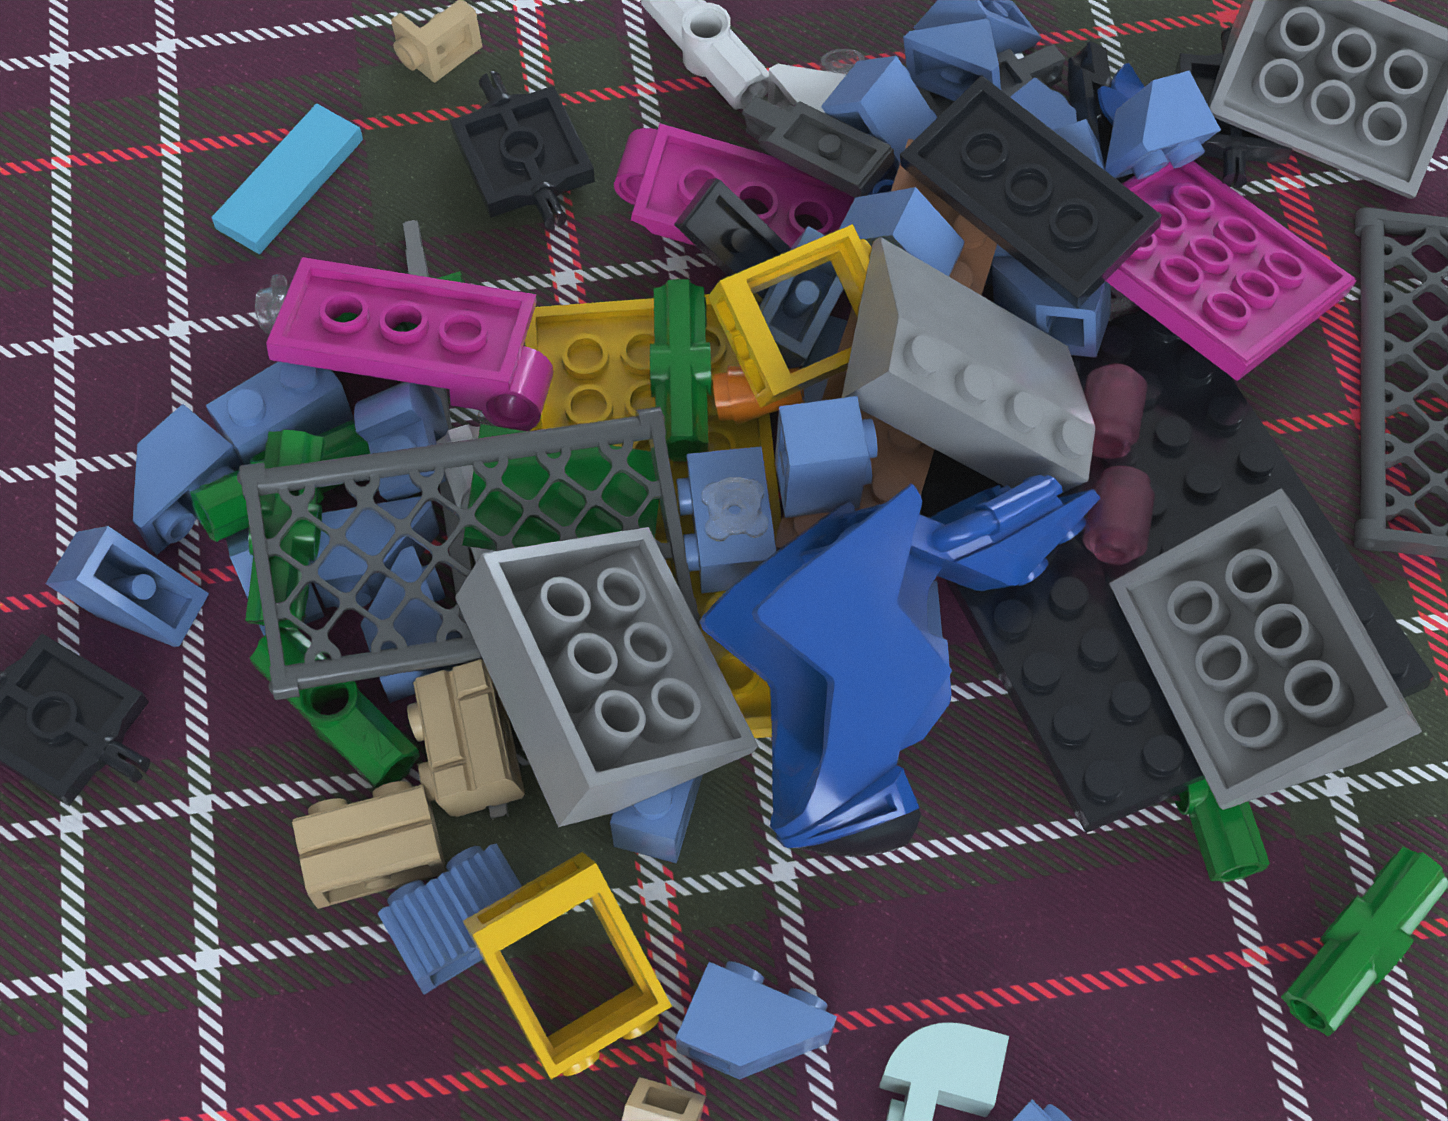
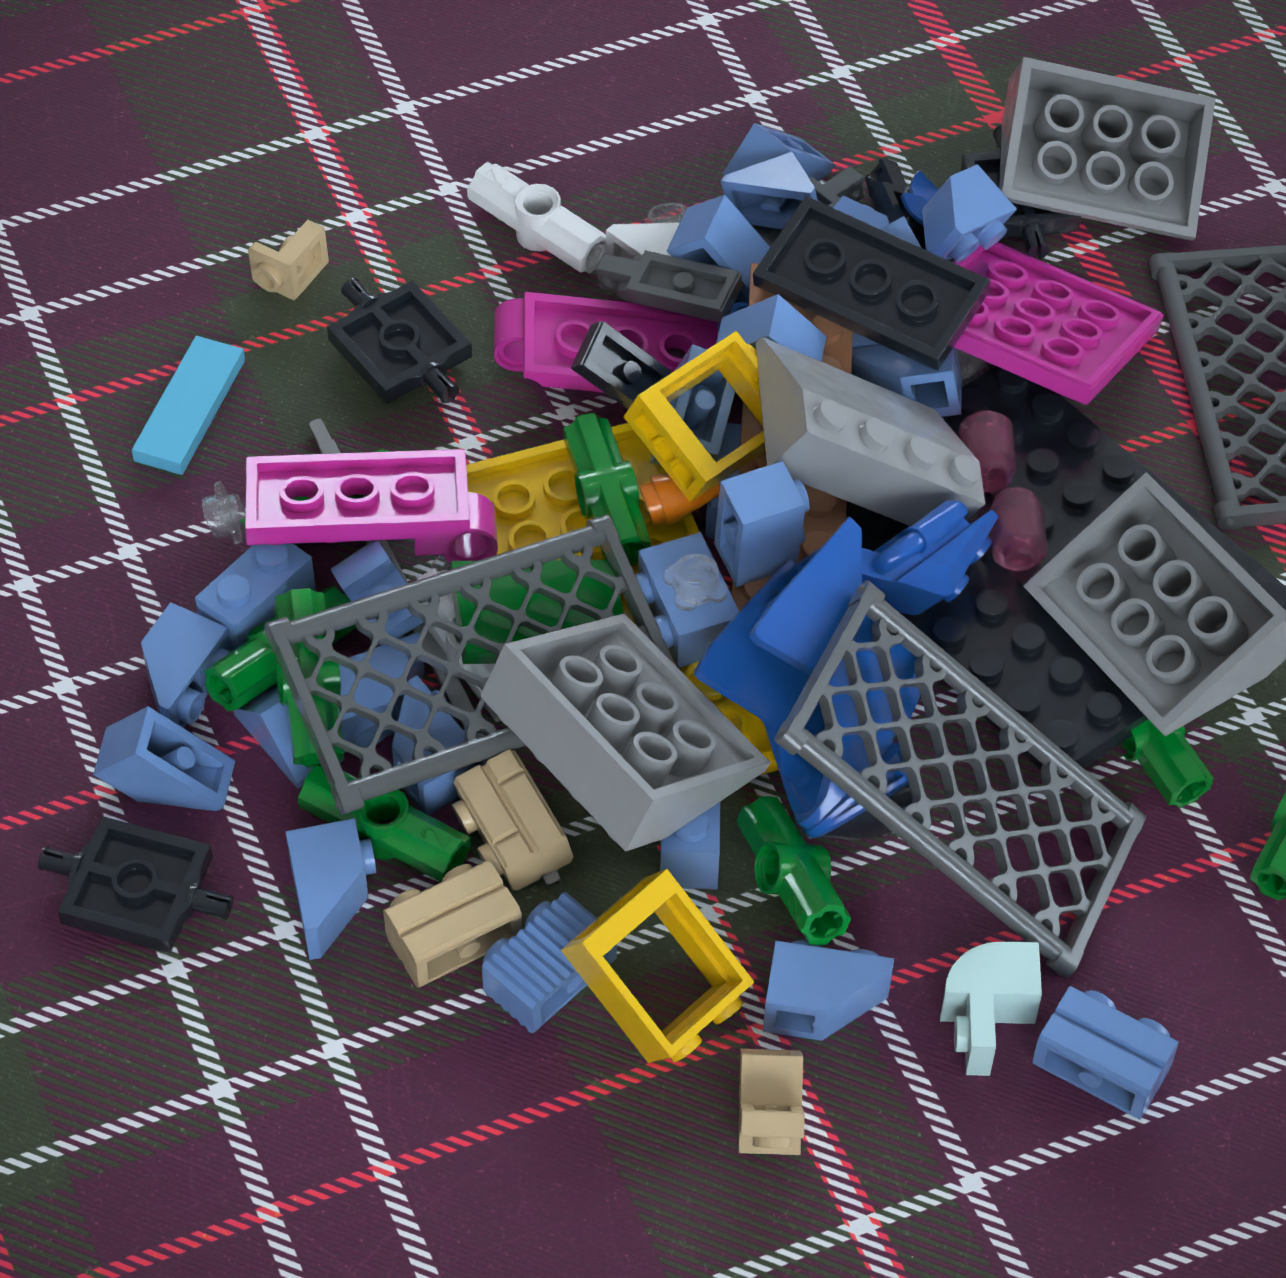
camera: 15 degrees left, 10 degrees down
(252, 764) = (329, 879): none -> medium blue slope
(755, 877) = (793, 870): none -> green piece
(768, 757) = (914, 821): none -> dark grey door

